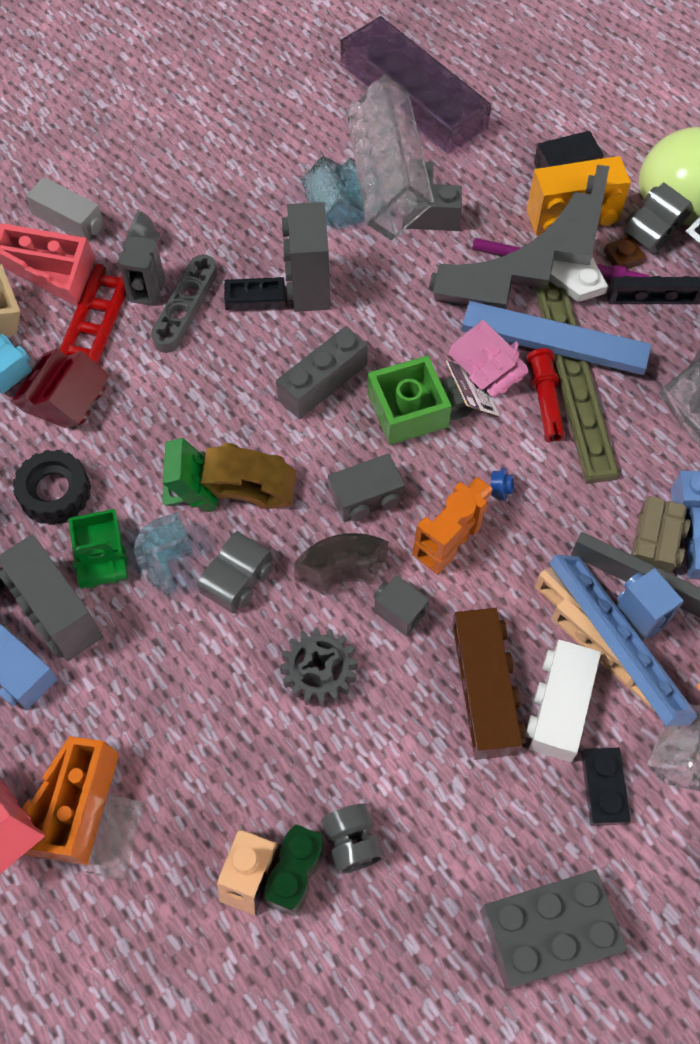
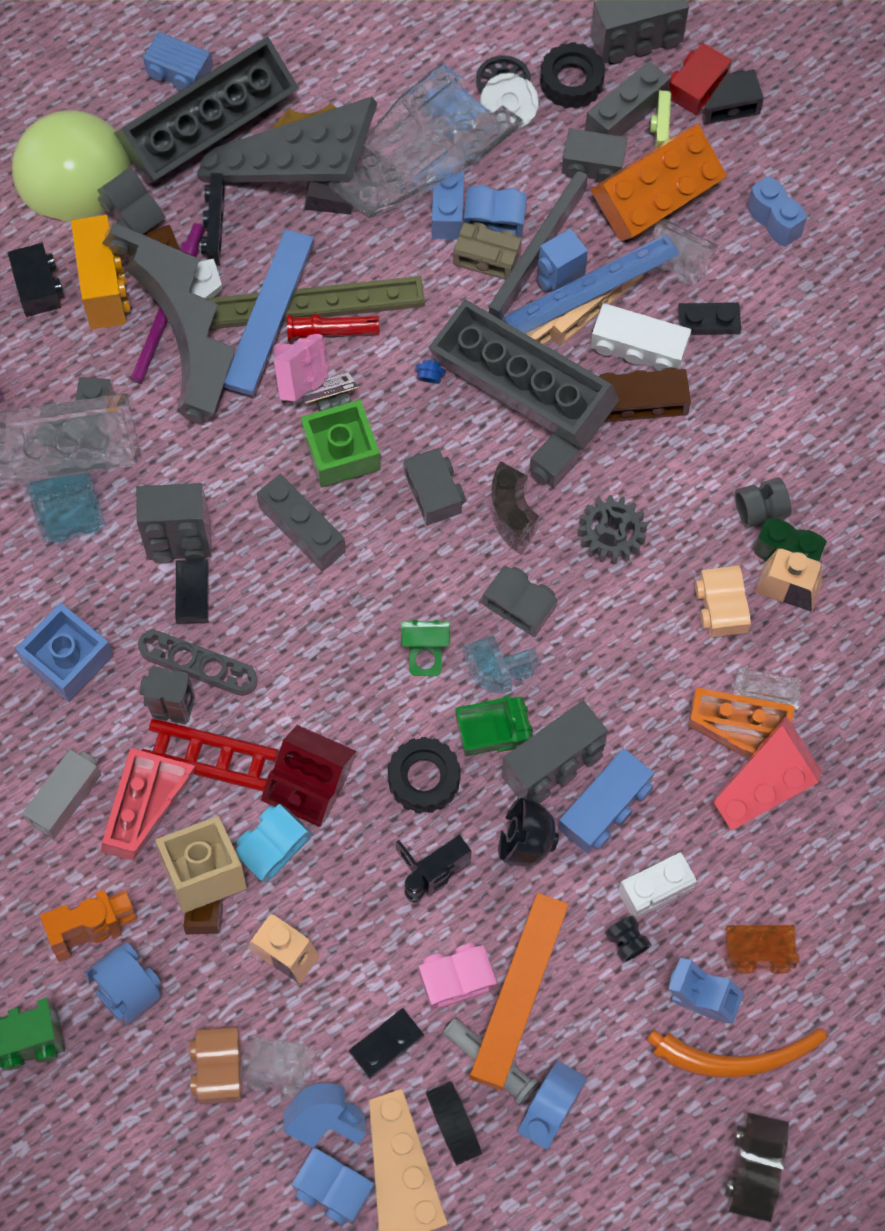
camera: 90 degrees left, 5 degrees up
(143, 227) = (102, 711): dark grey brick -> none
(192, 198) = (64, 652): none -> medium blue brick
(227, 789) = (724, 601): none -> light nougat brick
(248, 476) = (423, 584): pearl gold brick -> none
(463, 514) = (479, 410): orange hips -> none
(490, 563) = (524, 374): none -> dark grey brick
(552, 929) = (826, 363): dark grey brick -> none

